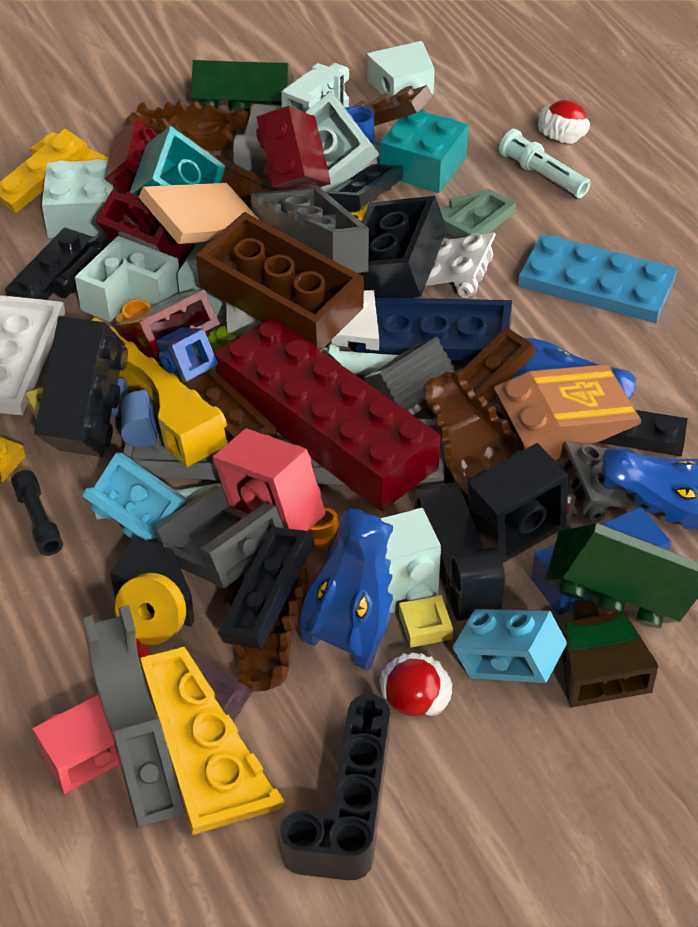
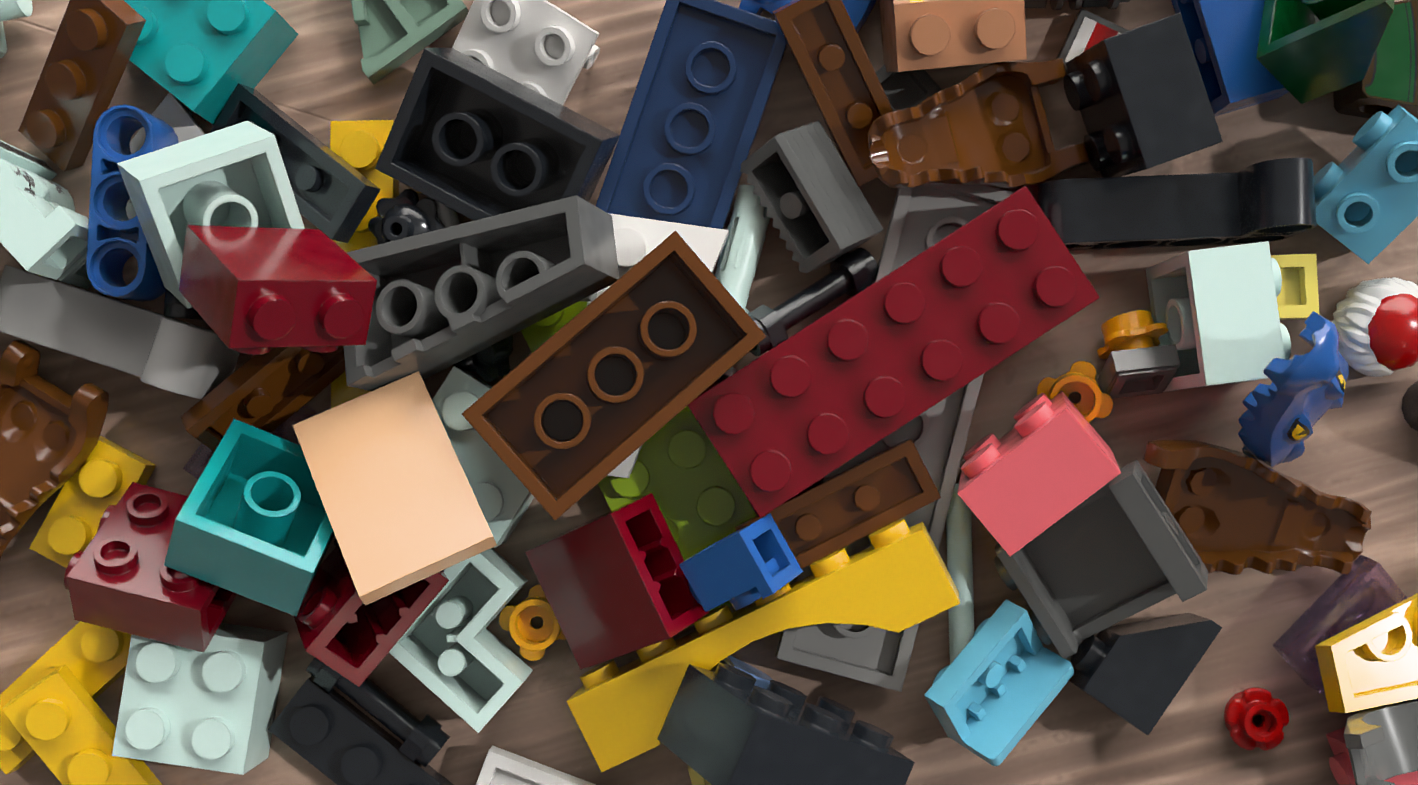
camera: 80 degrees left, 40 degrees up
(138, 419) = (838, 656): medium blue brick -> none
(163, 597) = (1210, 680): yellow piece -> none
(266, 587) = (1248, 510): black plate -> none

